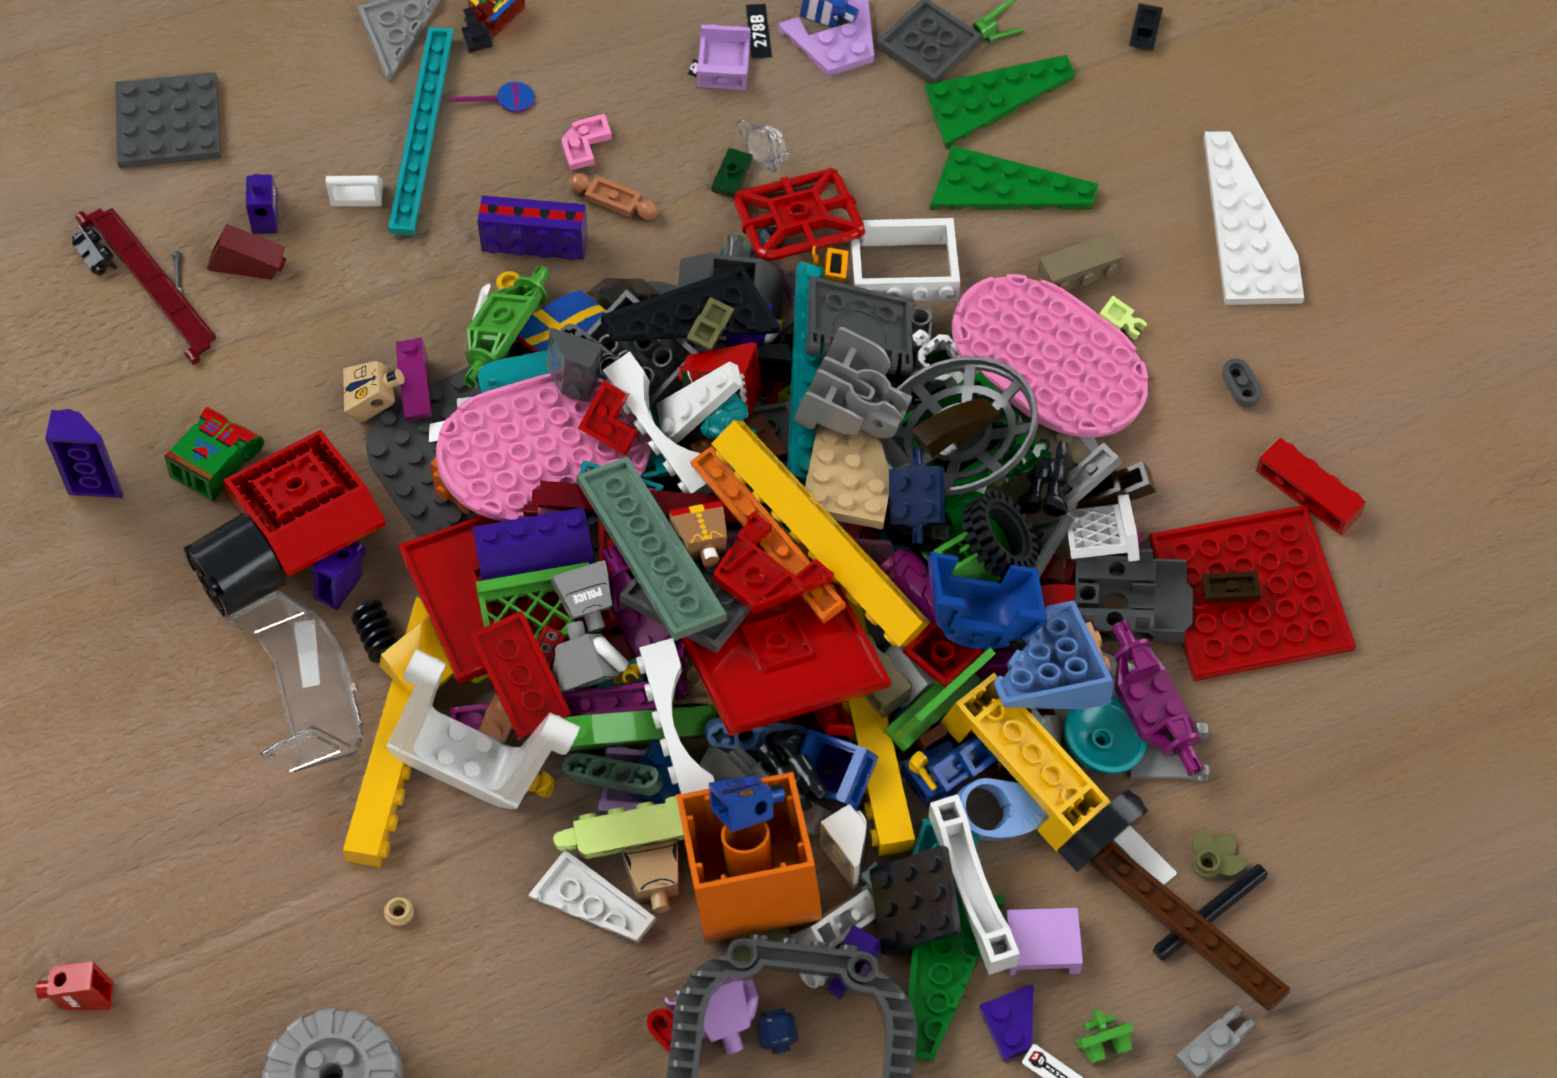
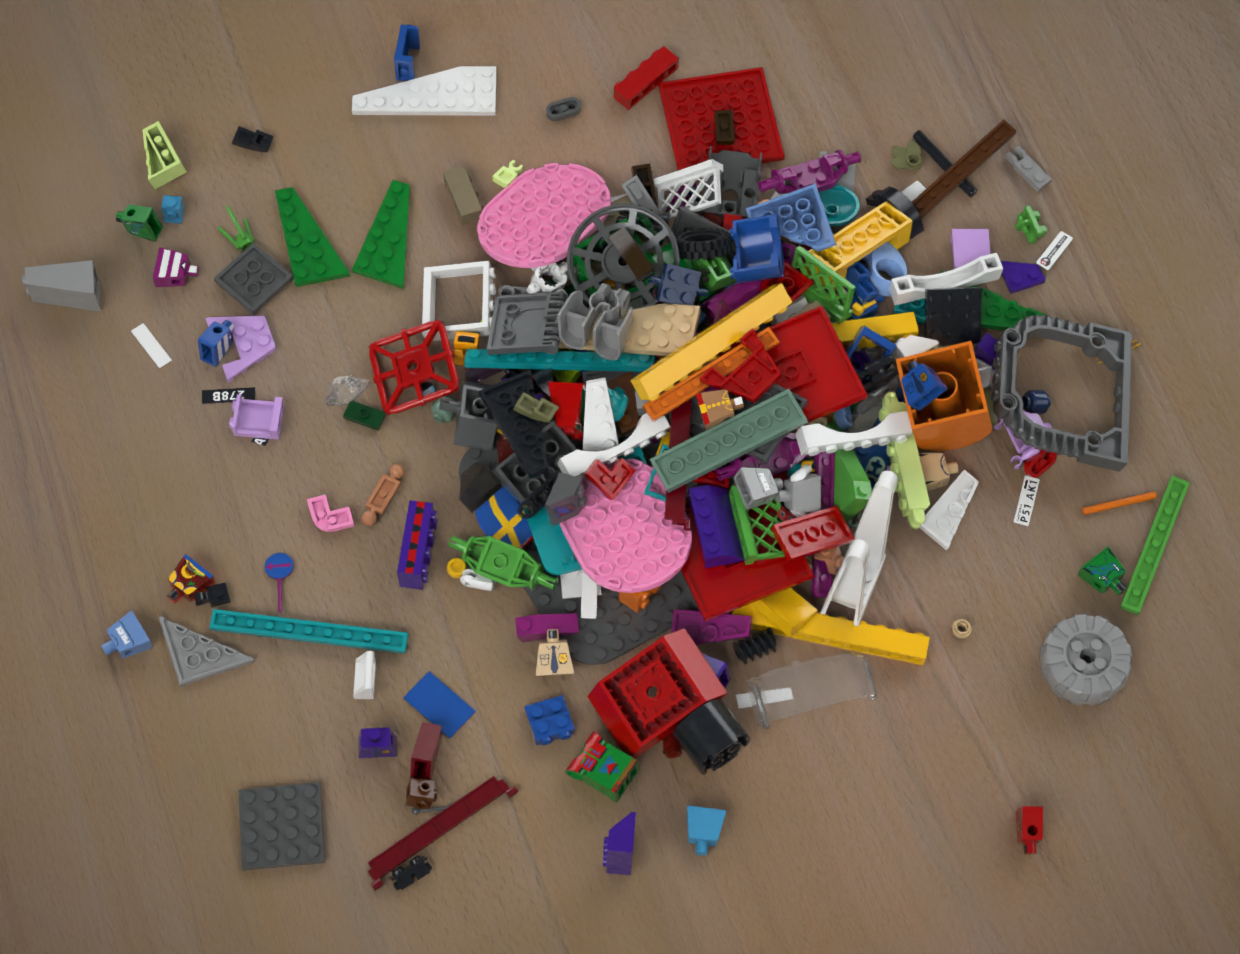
camera: 90 degrees left, 5 degrees up
(119, 572) = (704, 827): none -> dark azure torso
(191, 251) = (420, 793): none -> reddish brown brick
(285, 394) = (549, 720): none -> blue plate
(318, 275) = (439, 704): none -> blue window
(398, 591) = (714, 630): none -> magenta wing
(610, 1016) = (1026, 500): none -> white sticker
(1304, 178) = (407, 40): none -> blue panel

